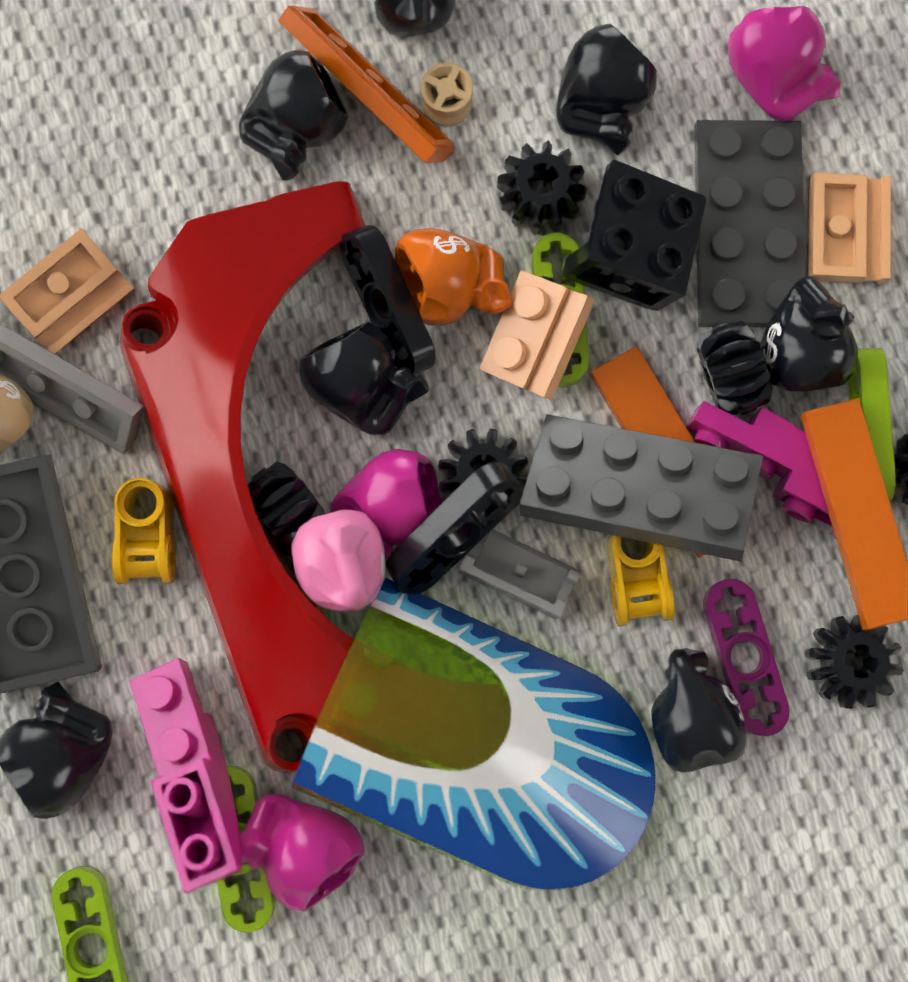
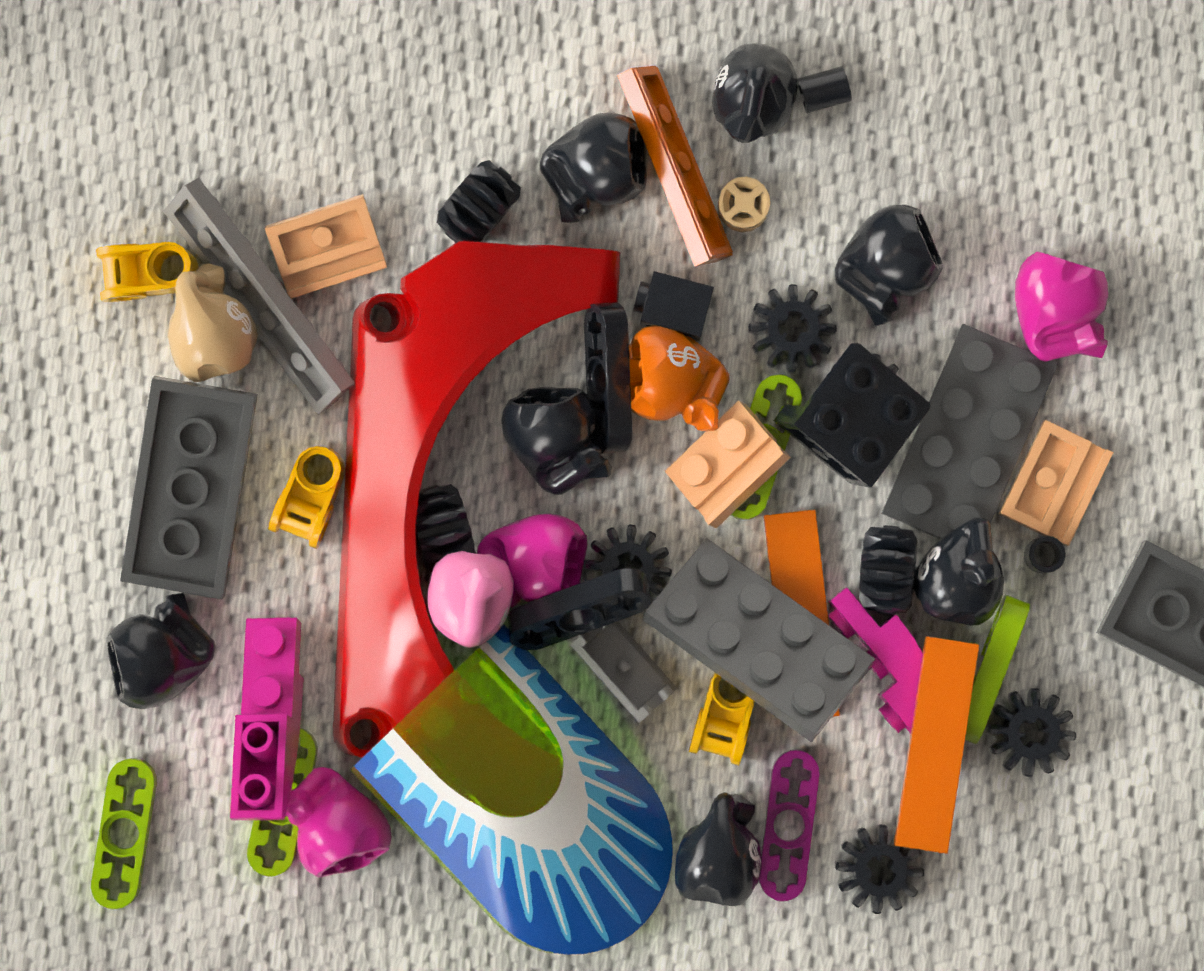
camera: 30 degrees right, 5 degrees up
(194, 185) = (478, 203): none -> black gear
(421, 205) = (674, 304): none -> black brick
(881, 287) = (1058, 548): none -> black hinge

